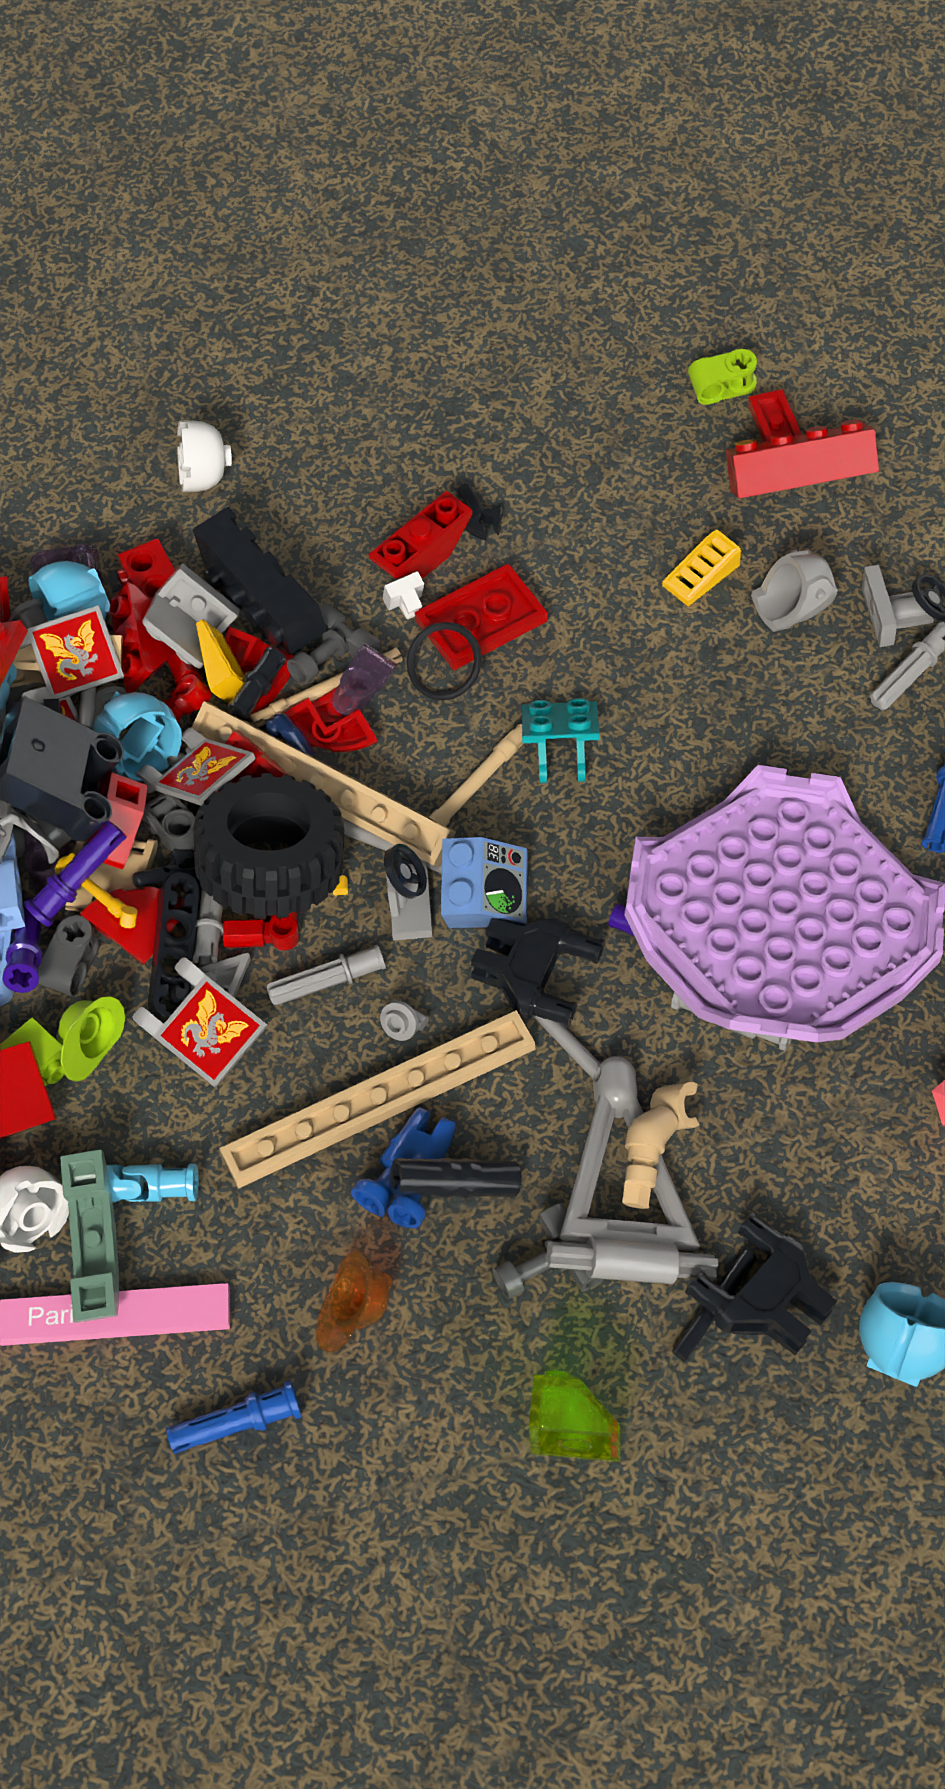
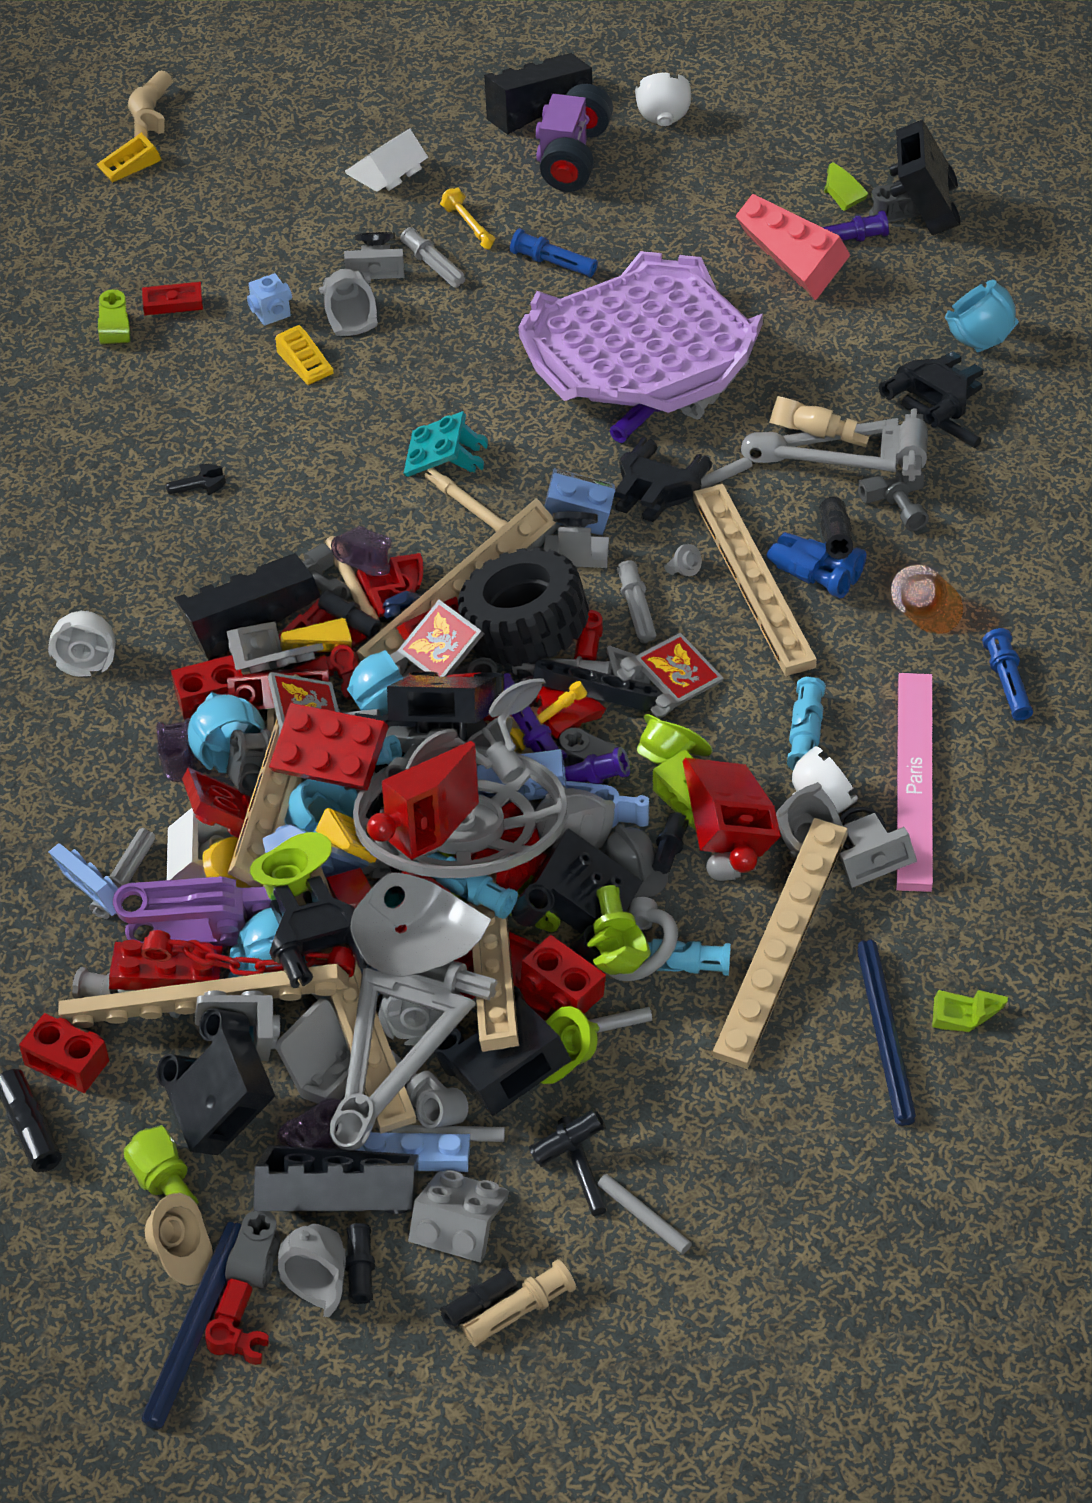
camera: 85 degrees left, 10 degrees down
(92, 1236) = (858, 745): sand green slope -> none
(404, 594) = (276, 525): white tile -> none
(424, 539) = (225, 502): red slope -> none
(476, 666) = (353, 478): black tyre -> none
(491, 608) = (312, 485): red plate -> none
(570, 1420) = (1029, 483): clear neon green slope -> none
(786, 511) = (269, 299): none -> light blue brick
(802, 459) = (223, 282): brick -> none

